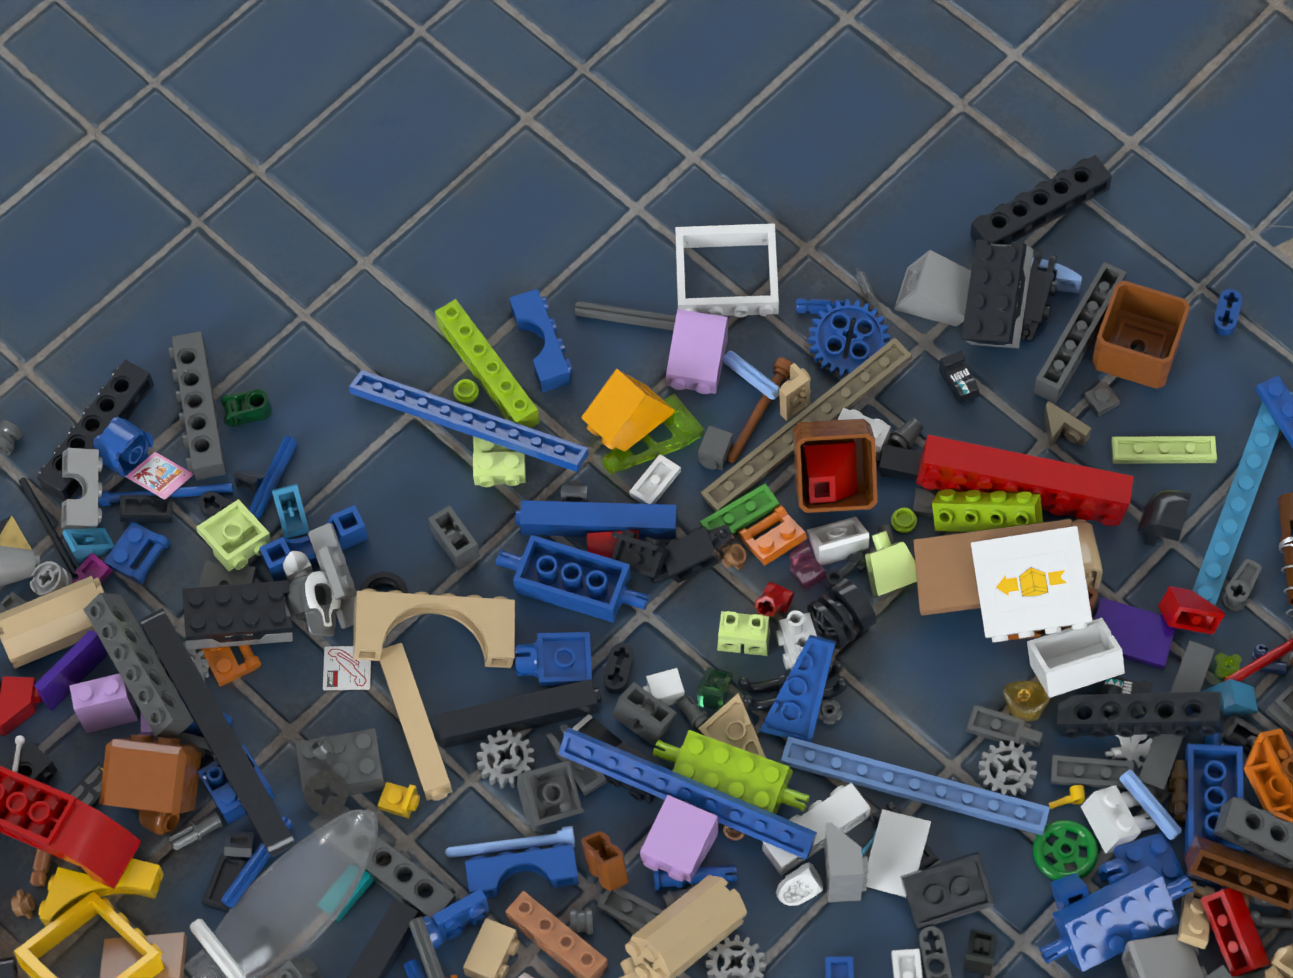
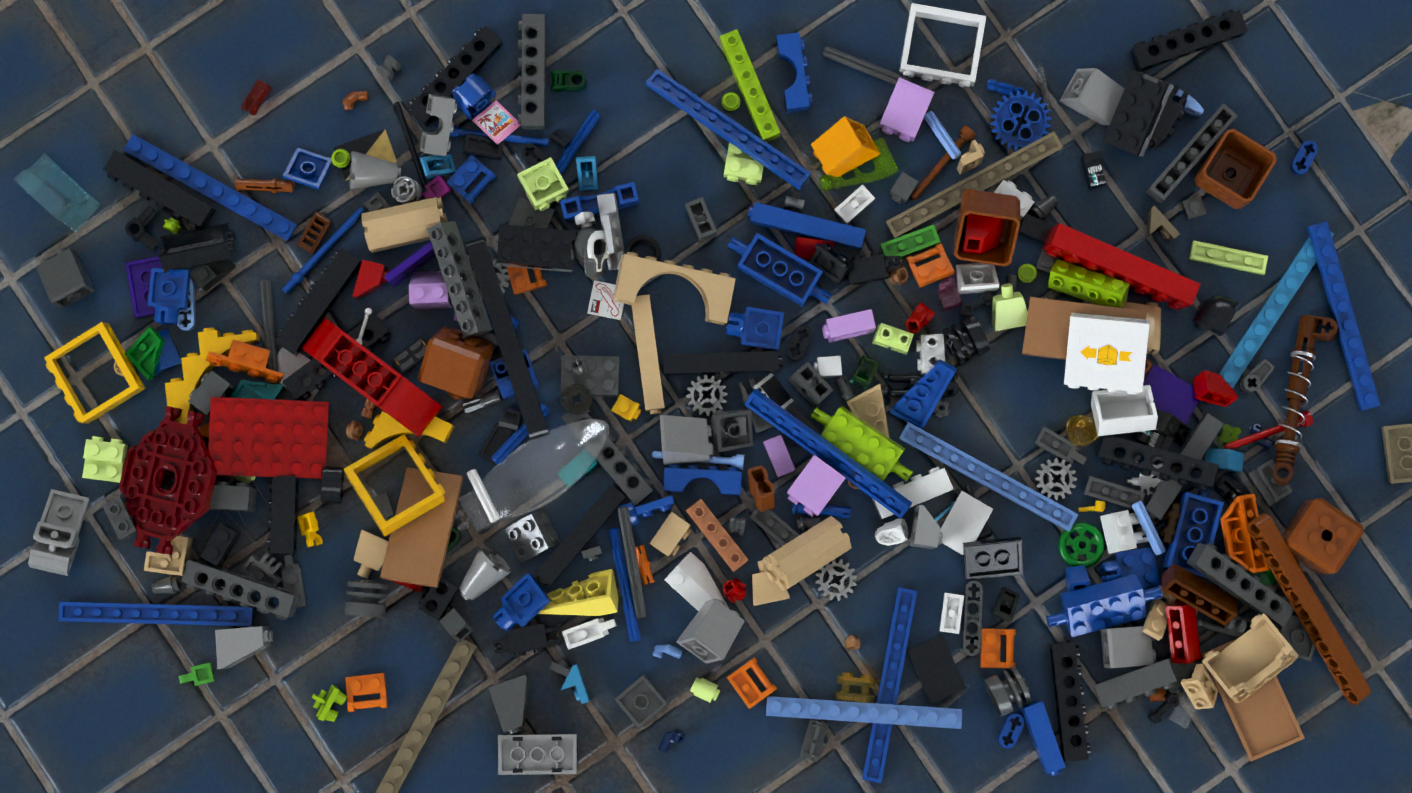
camera: 10 degrees right, 20 degrees up
(486, 819) = (685, 439): none -> light grey slope
(622, 819) = (779, 456): none -> lavender tile
(680, 628) = (849, 326): none -> lavender window
(1141, 666) = (1171, 426): none -> pearl dark grey slope

